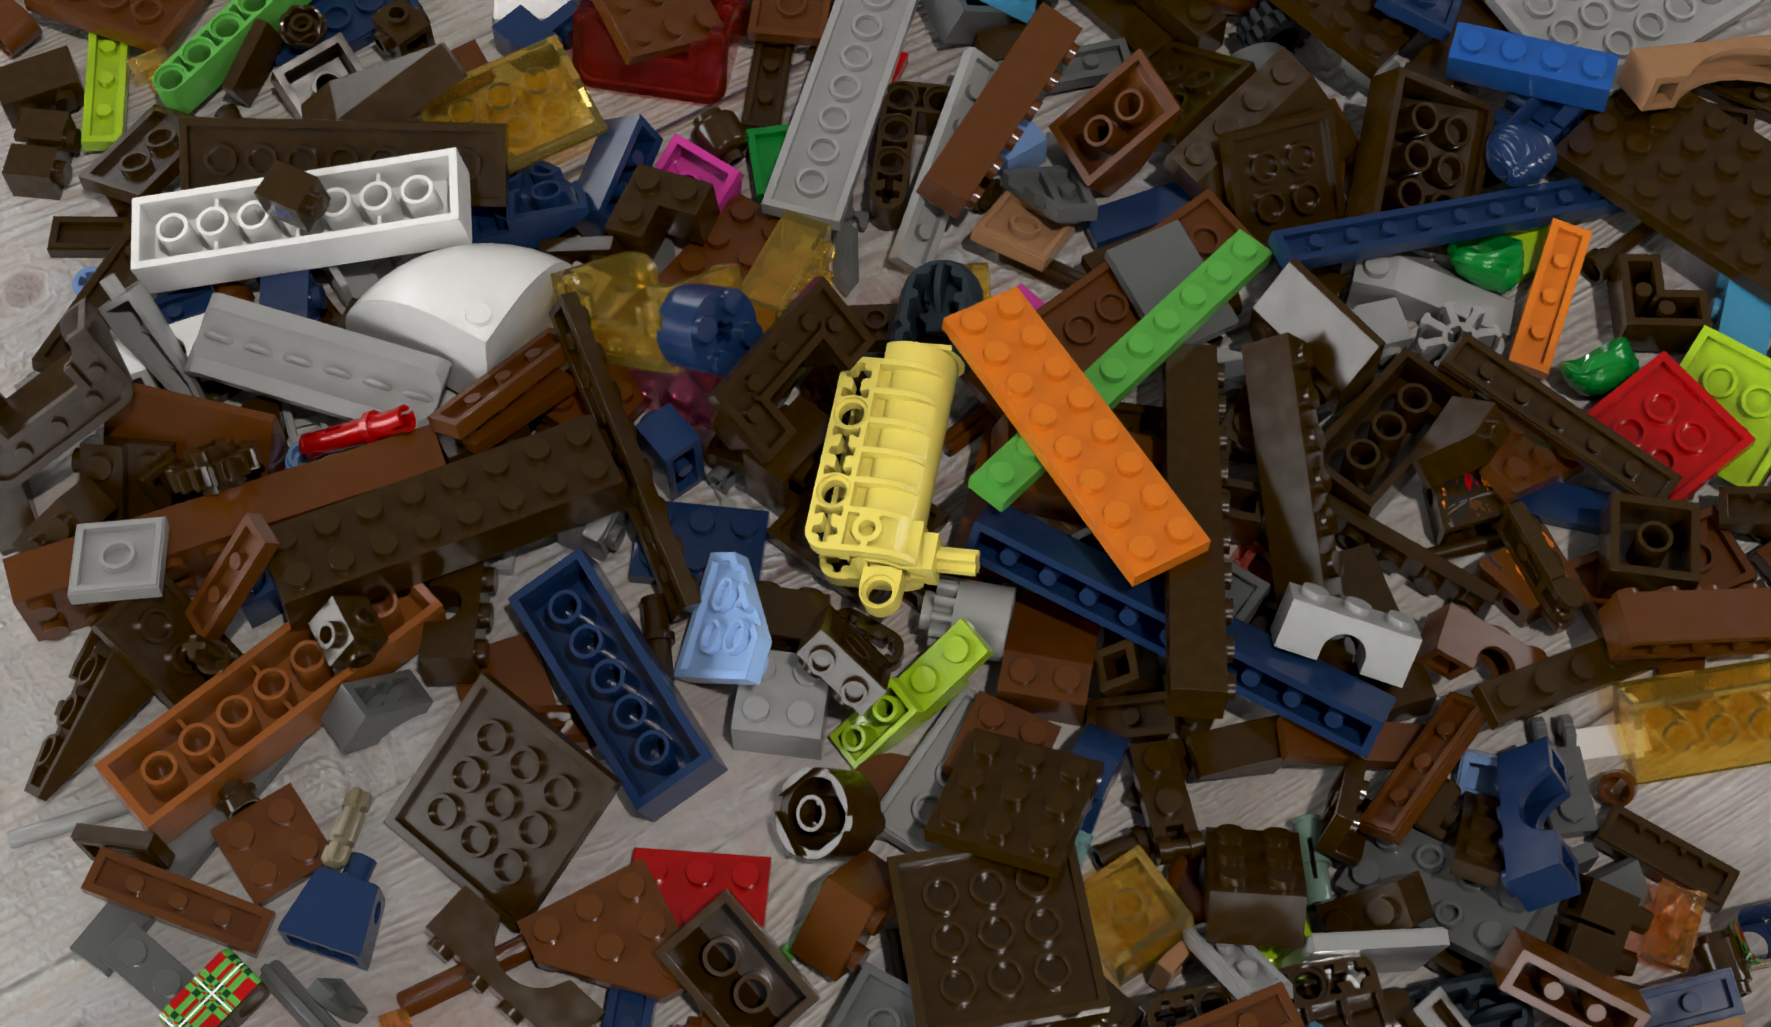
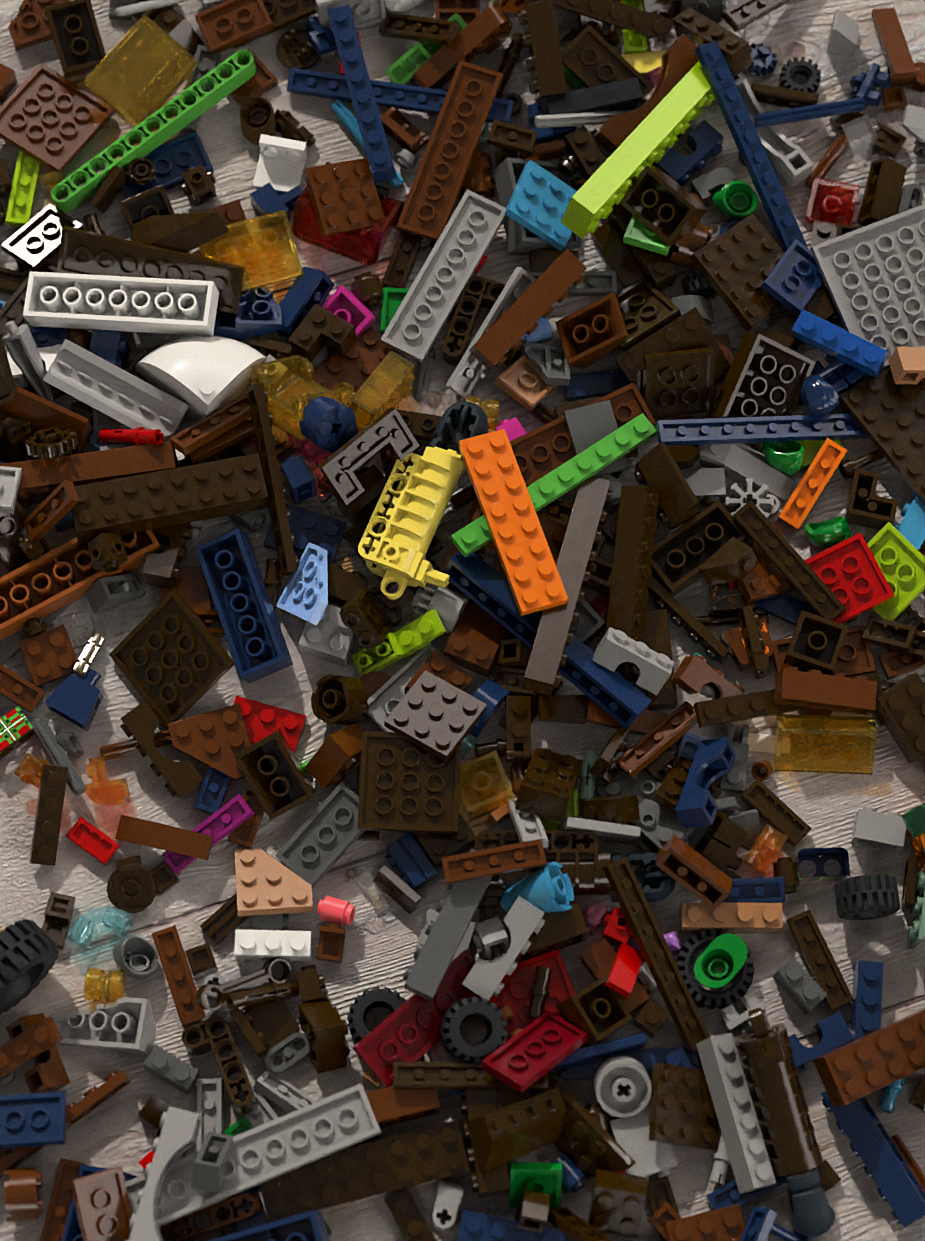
camera: 10 degrees right, 10 degrees up
(292, 196) = (118, 293): dark brown brick -> none

